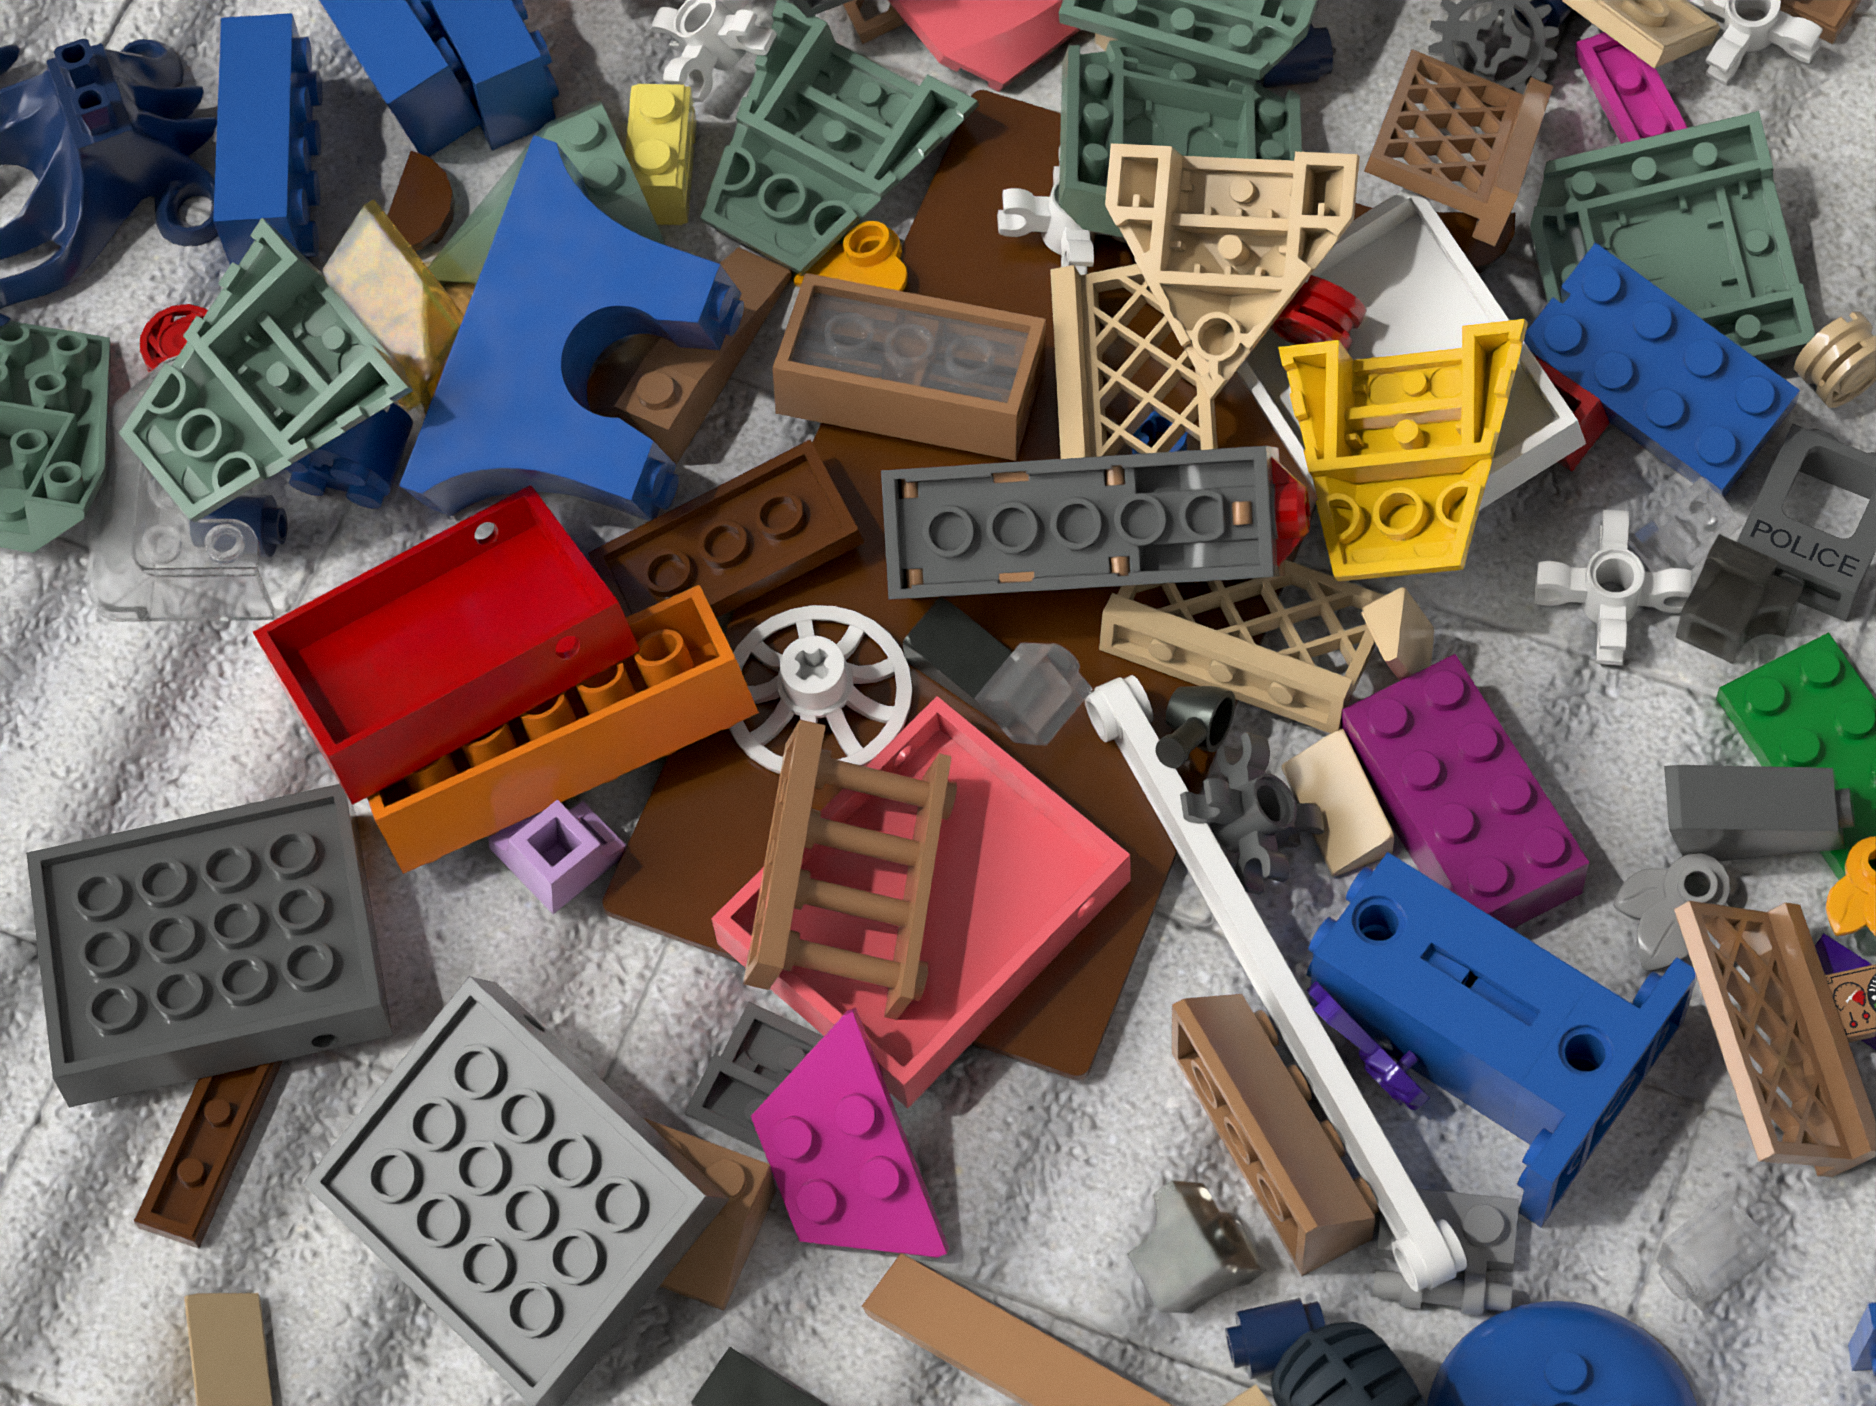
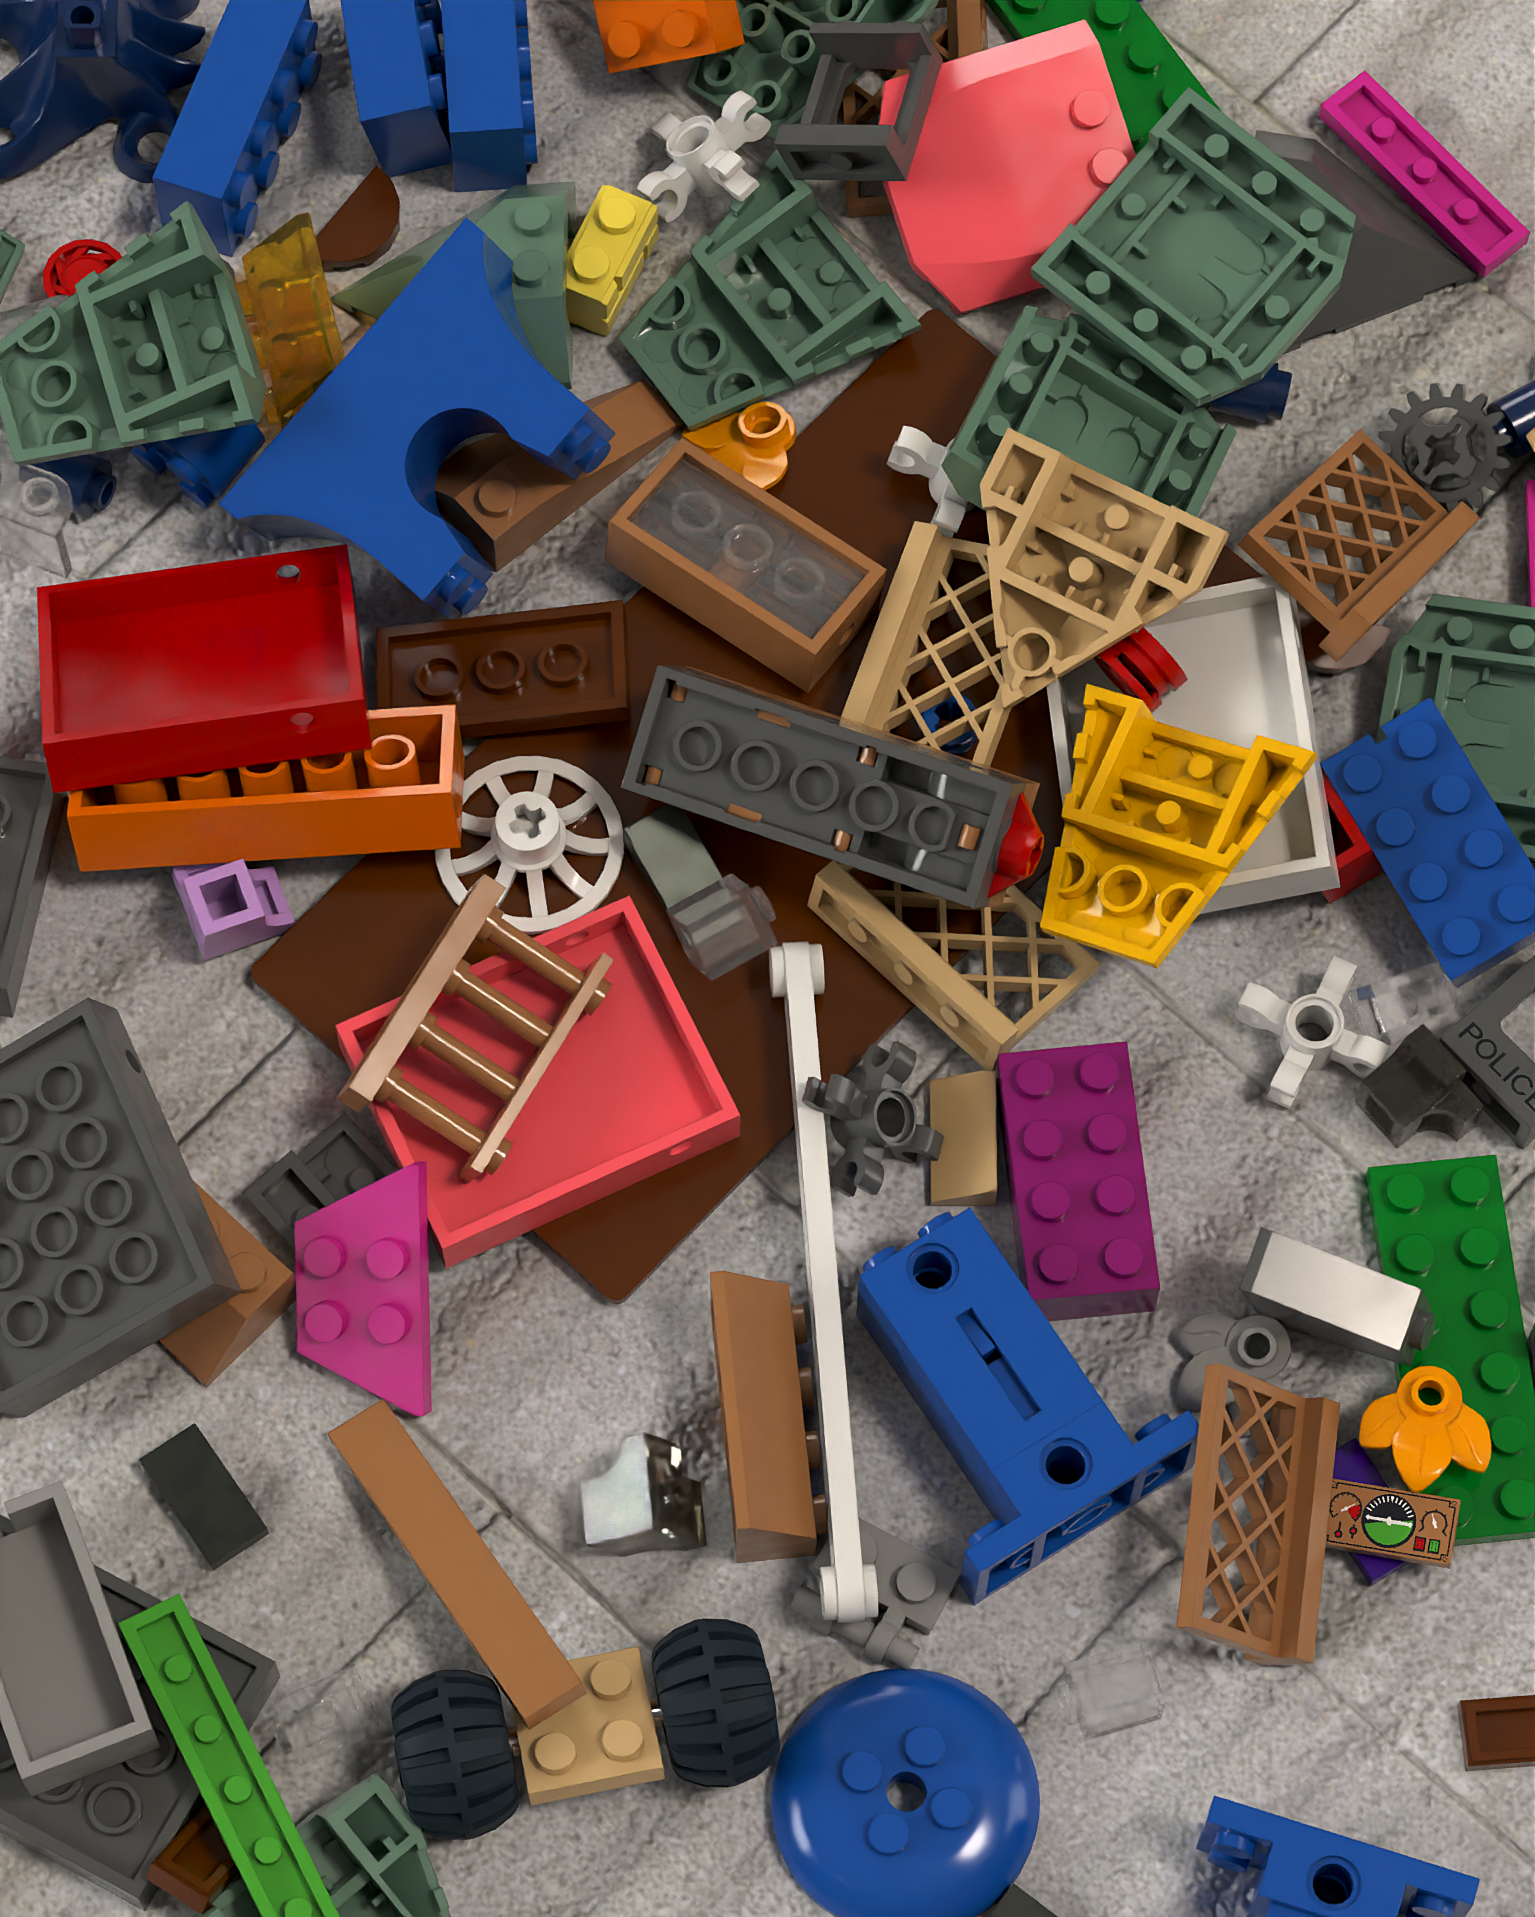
camera: 15 degrees right, 5 degrees up
(1200, 720) = (867, 1010): pearl dark grey bar -> none
(1267, 1332) = (678, 1601): dark blue brick -> none
(1378, 1063) = (889, 1398): dark purple piece -> none
(1400, 632) = (1085, 1004): tan slope -> none

